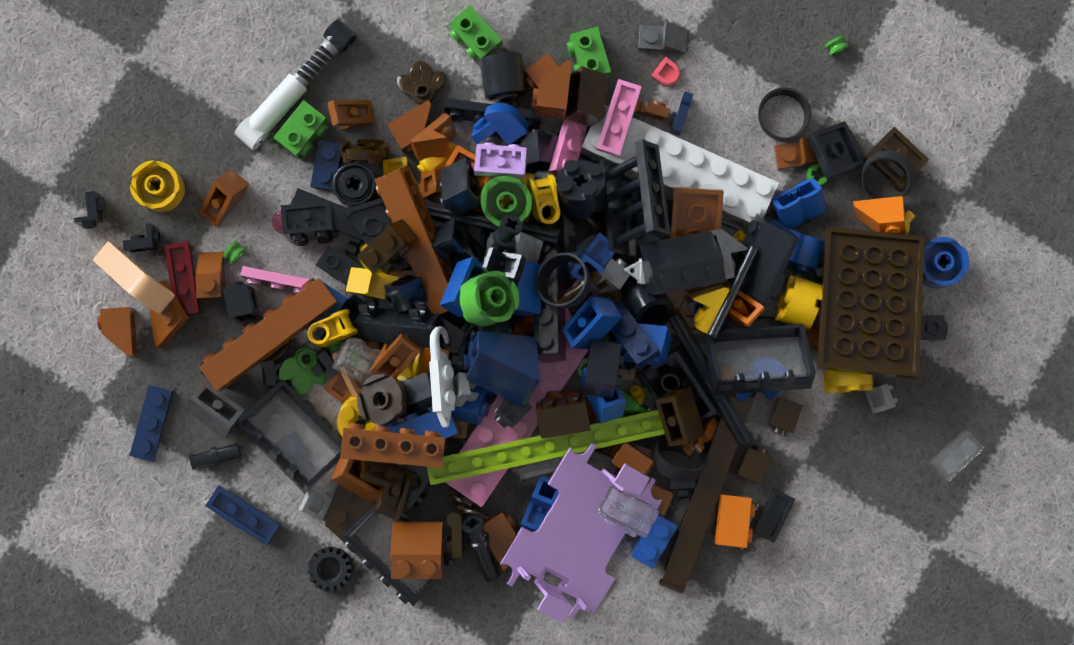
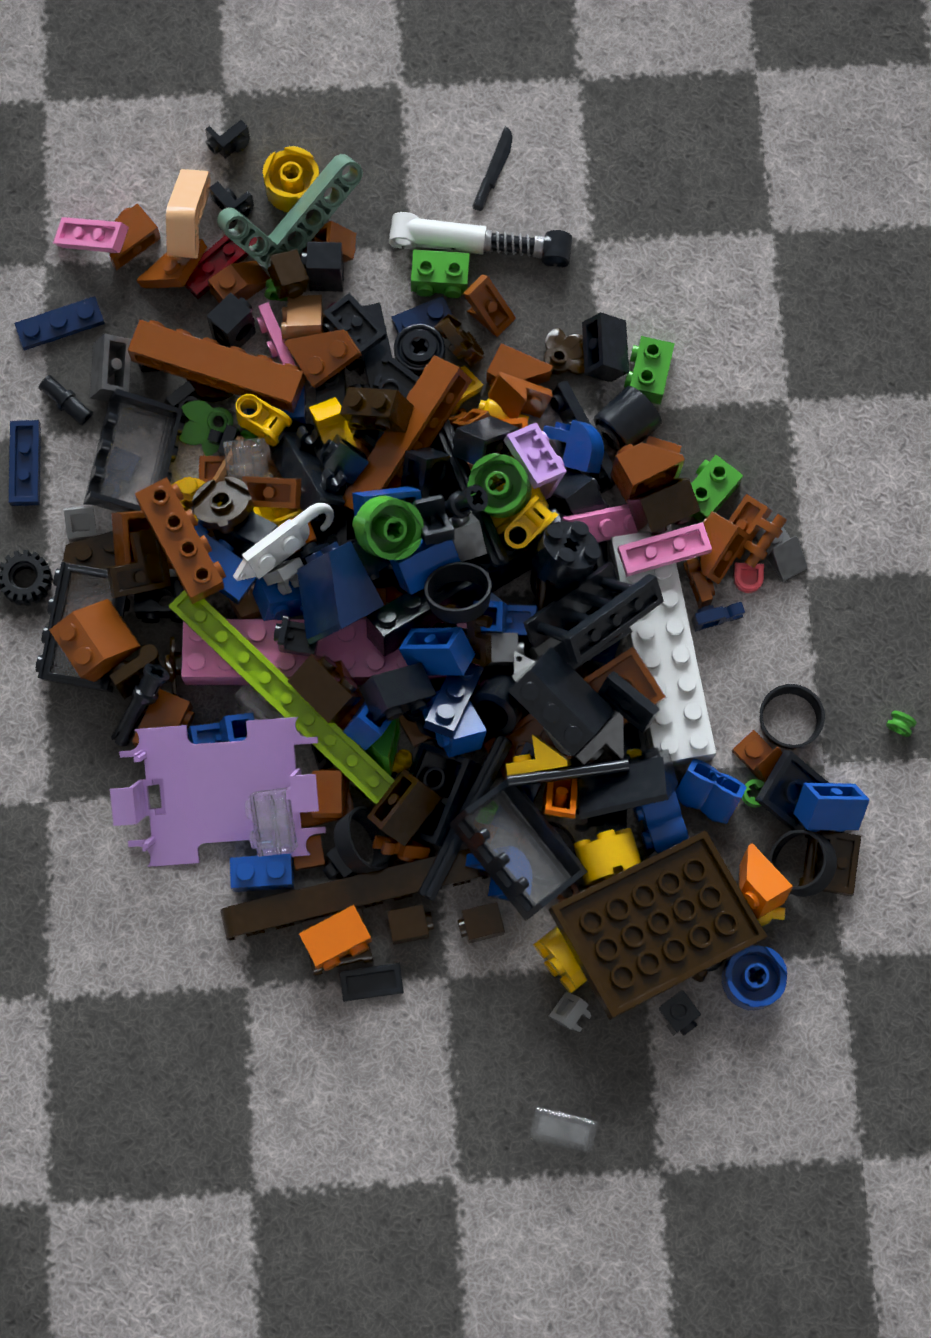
camera: 55 degrees right, 10 degrees down
(102, 358) = (91, 235): none -> bright pink plate
(198, 203) = (295, 219): none -> sand green beam
(233, 238) = (288, 274): none -> dark brown brick
(242, 209) = (324, 266): none -> black brick
(246, 37) = (495, 167): none -> black piece
(275, 250) = (302, 317): none -> medium nougat brick
(314, 255) = (323, 354): none -> dark orange wing
(443, 55) = (605, 347): none -> black brick
(632, 52) = (750, 517): none -> dark orange plate
(636, 71) = (726, 543): none -> dark orange slope
(711, 217) = (628, 701): none -> black plate
(865, 132) = (831, 806): none -> blue brick

